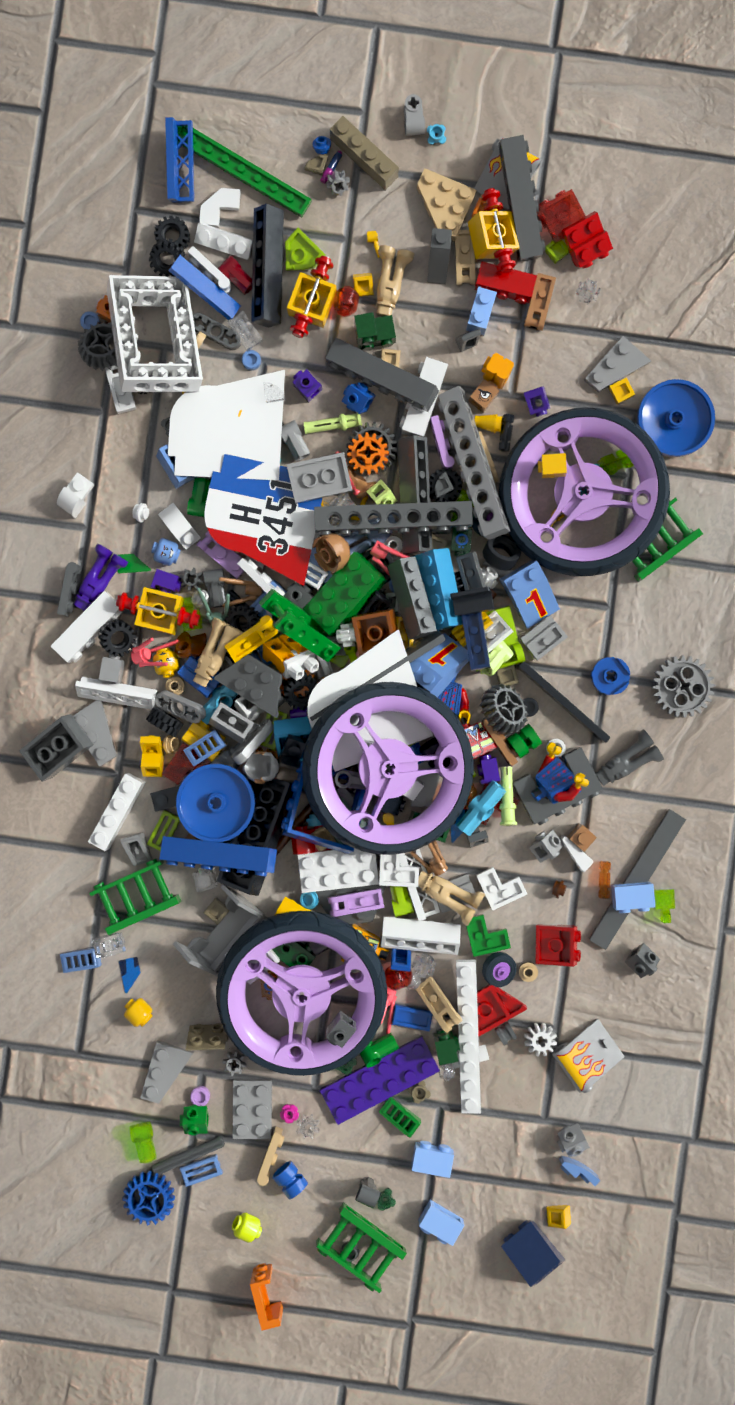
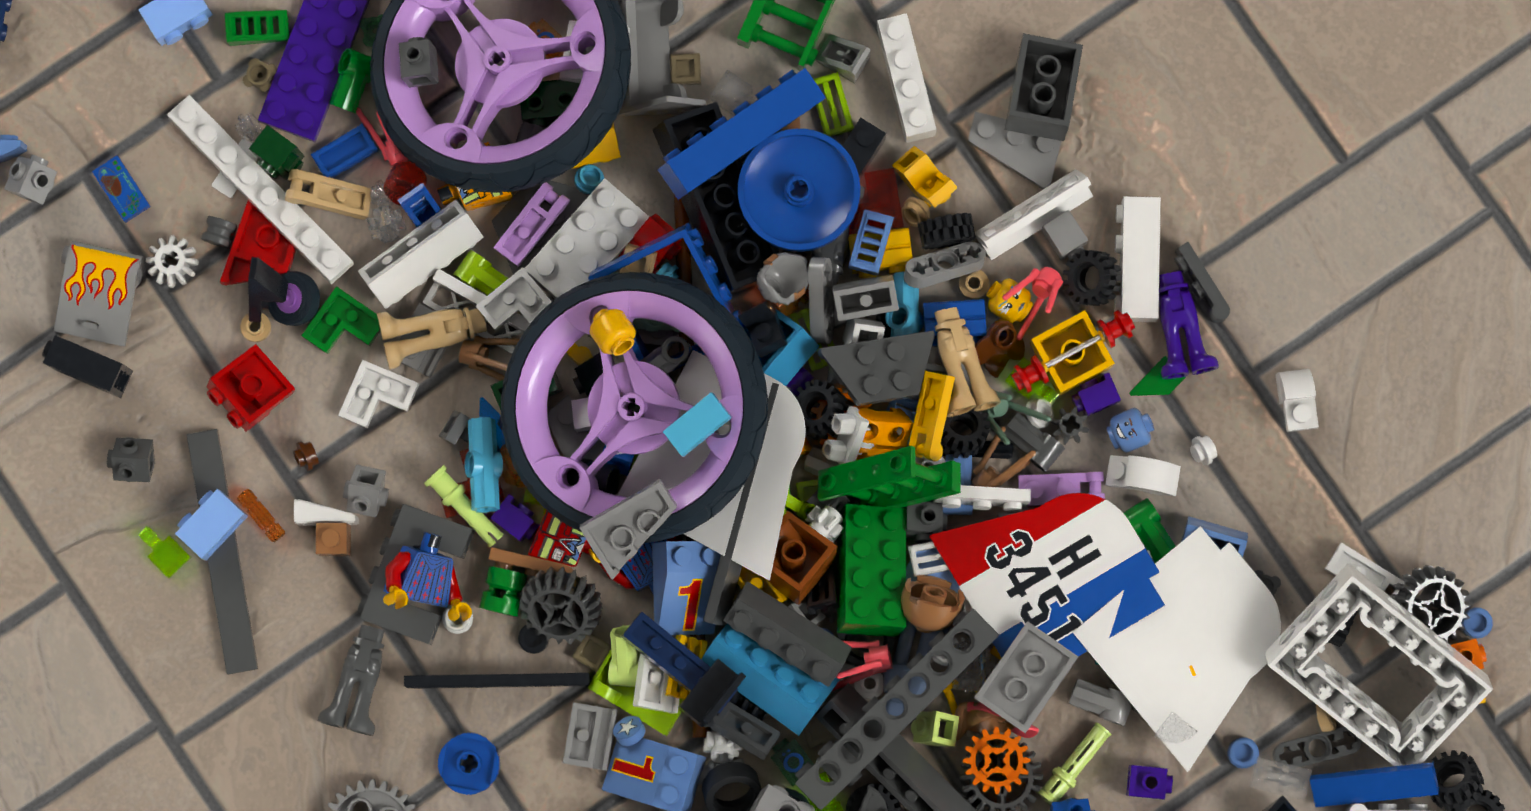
camera: 145 degrees right, 5 degrees down
(367, 730) = (697, 424): none -> medium azure tile
(367, 812) = (612, 331): none -> yellow head
(443, 713) = (625, 526): none -> light grey wing
(509, 987) = (264, 286): none -> black slope
(524, 623) = (629, 730): none -> medium blue tile
(533, 1096) = (121, 189): none -> blue tile
(626, 1025) = (86, 366): none -> black window

